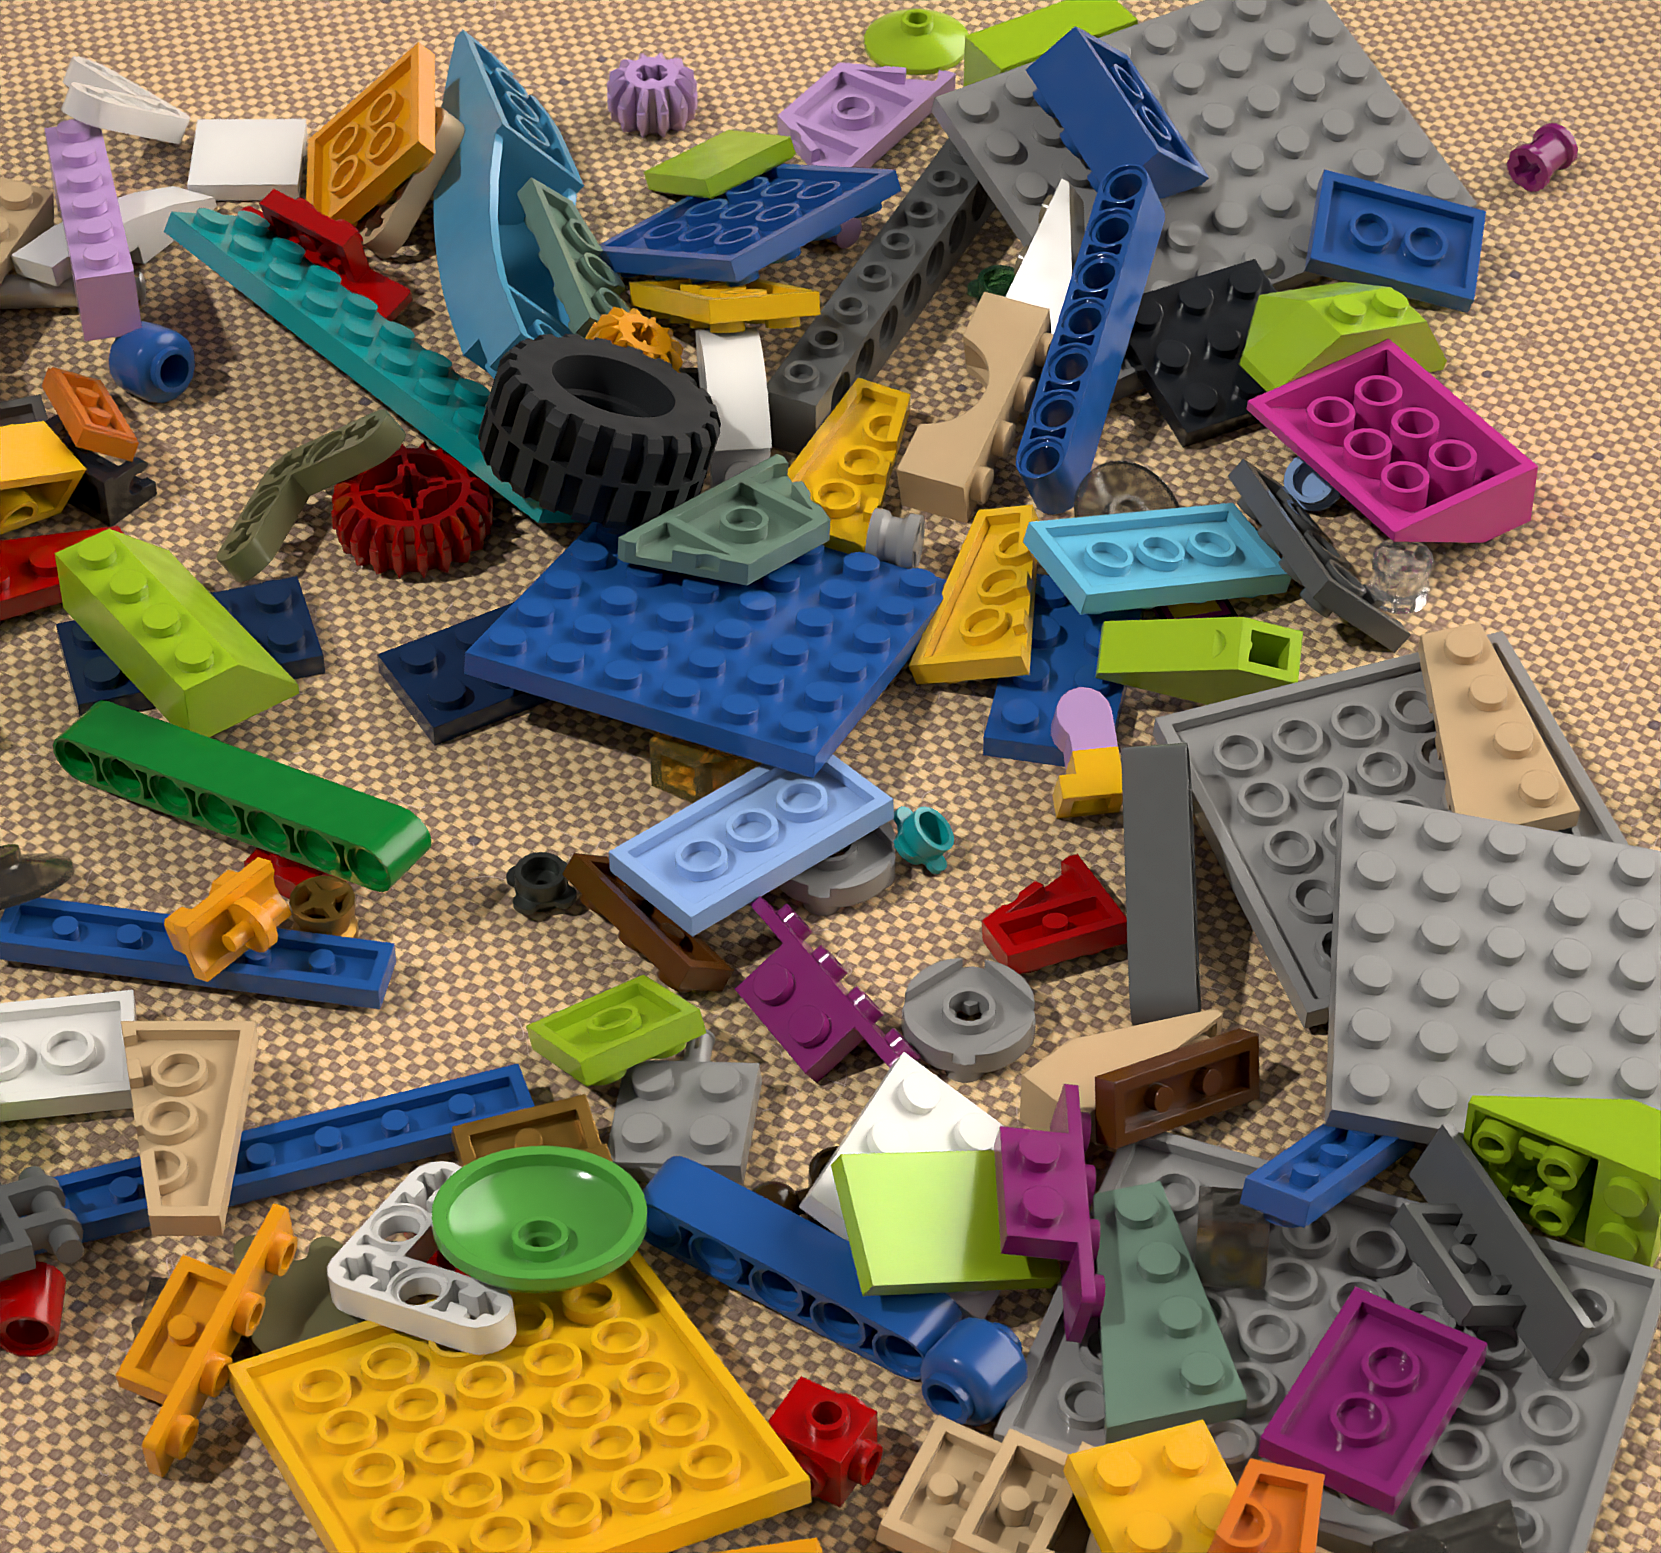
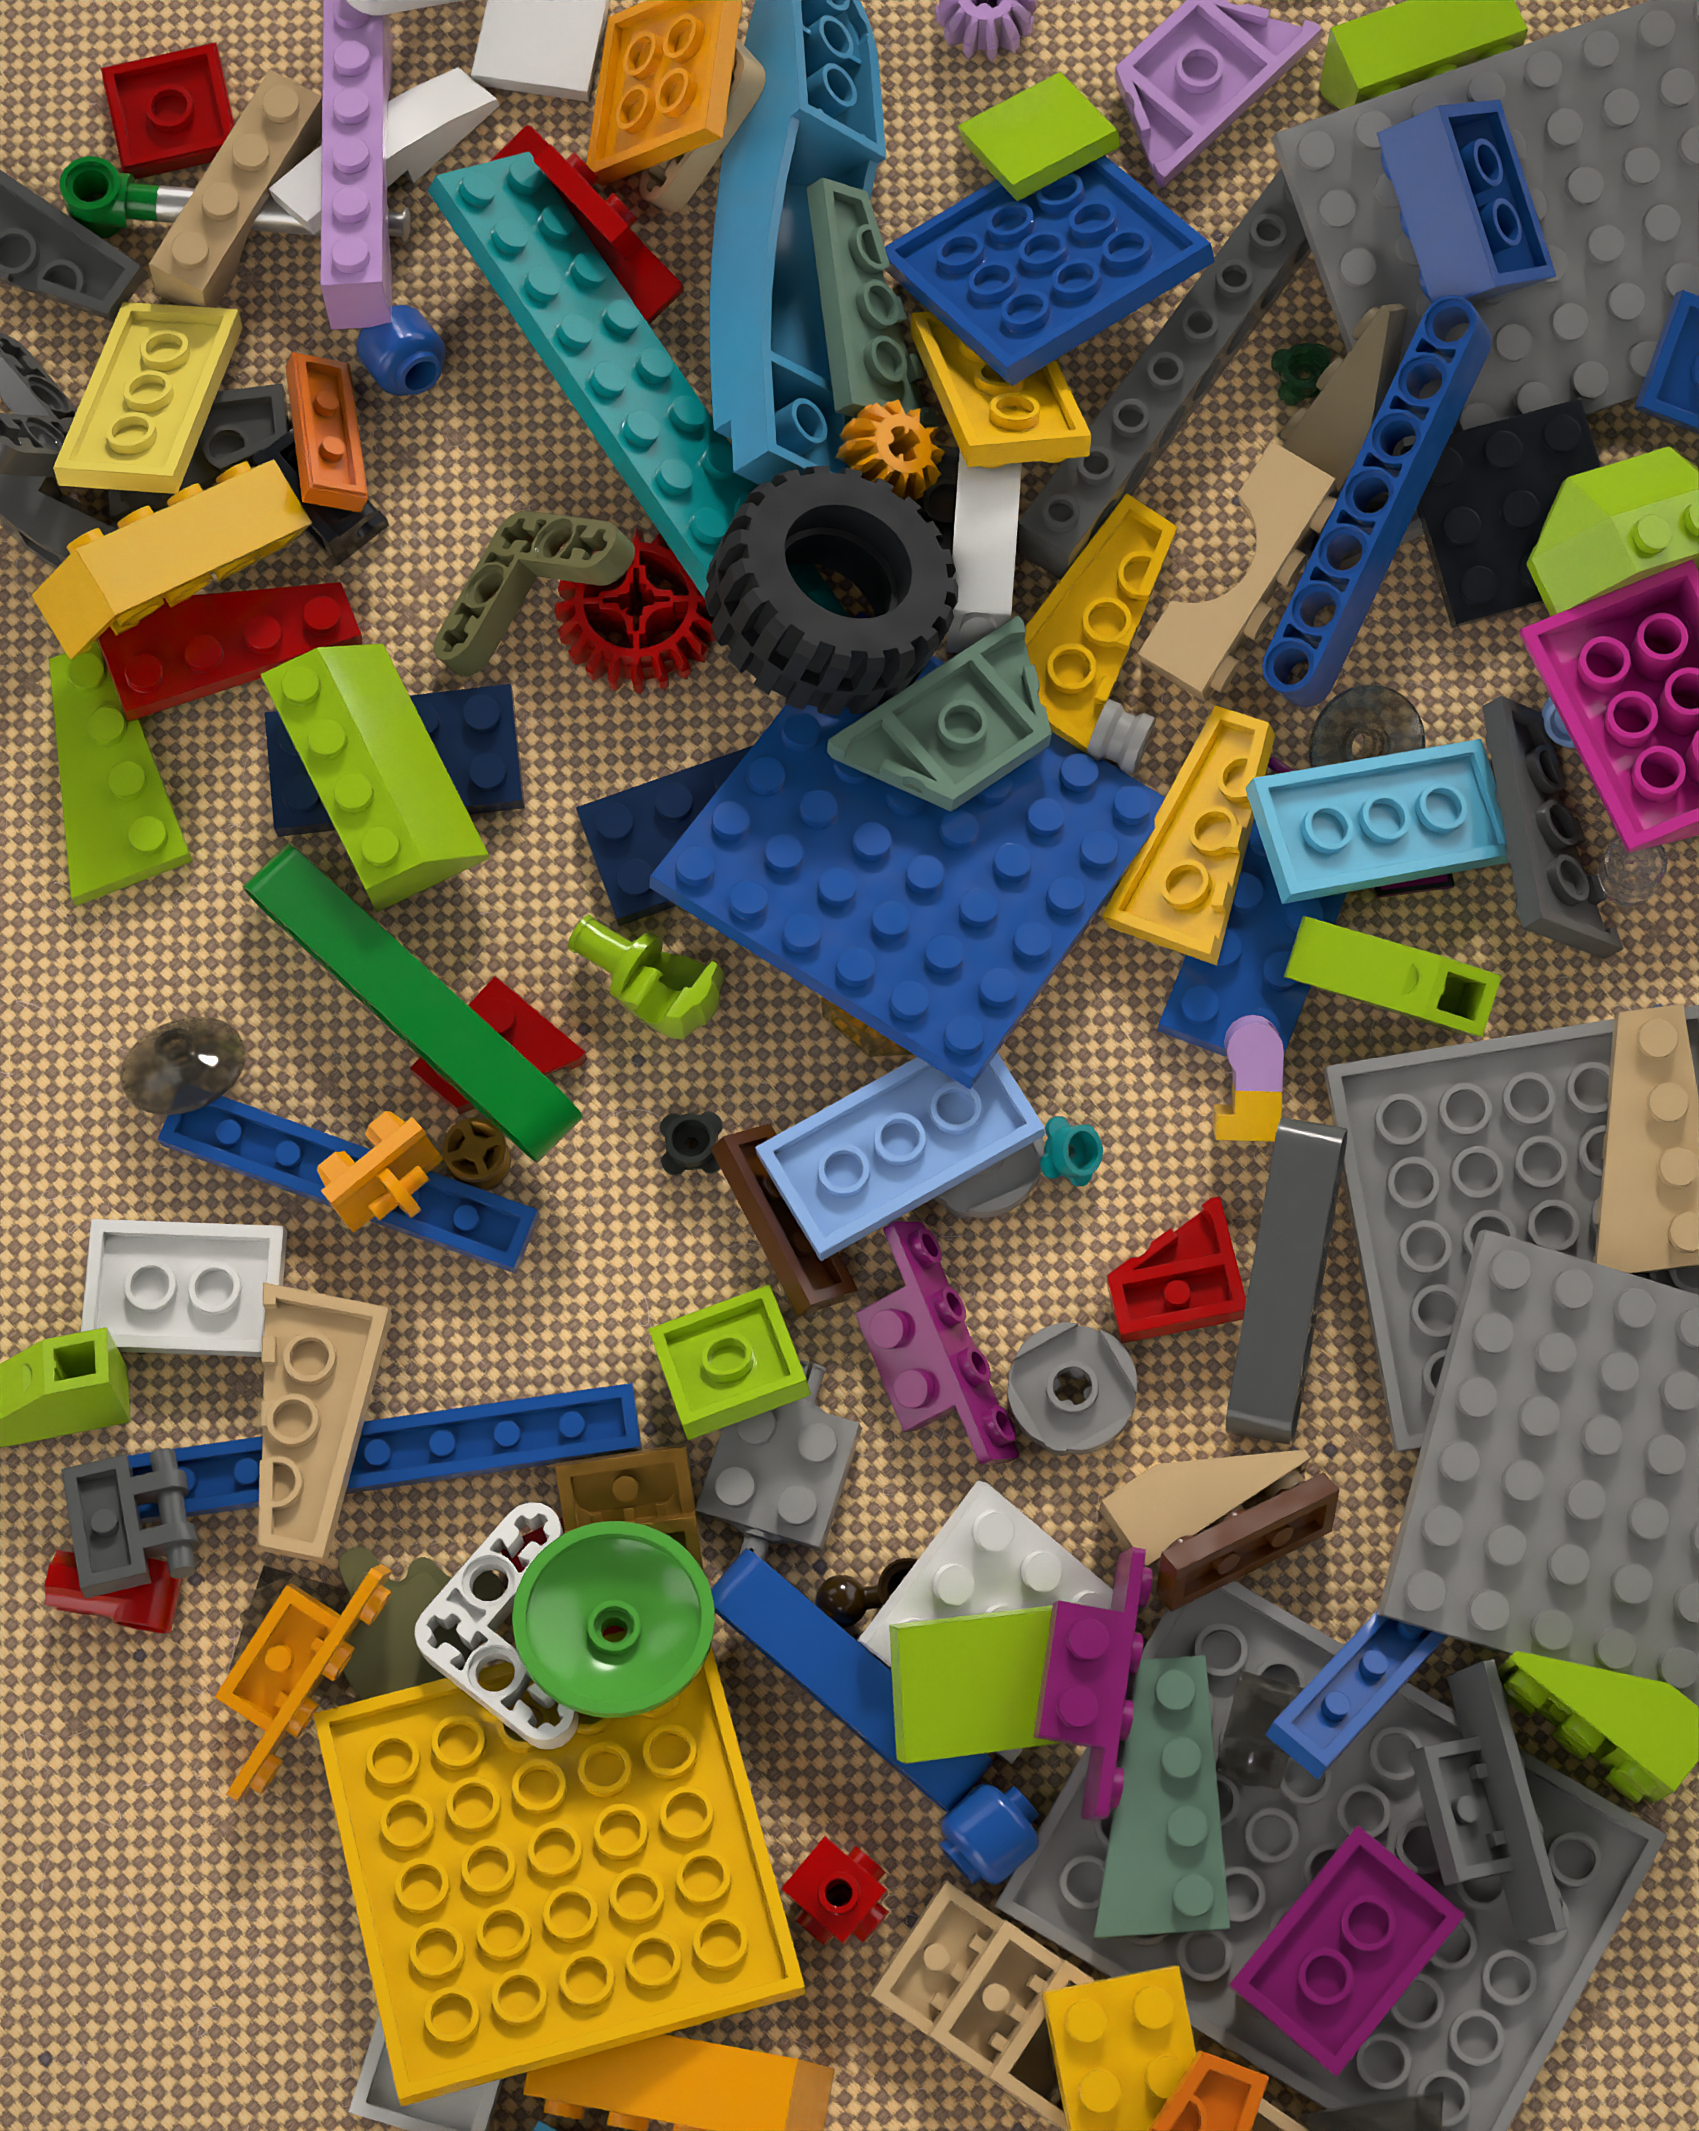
camera: 15 degrees right, 30 degrees up
(482, 777) = (655, 986): none -> lime piece

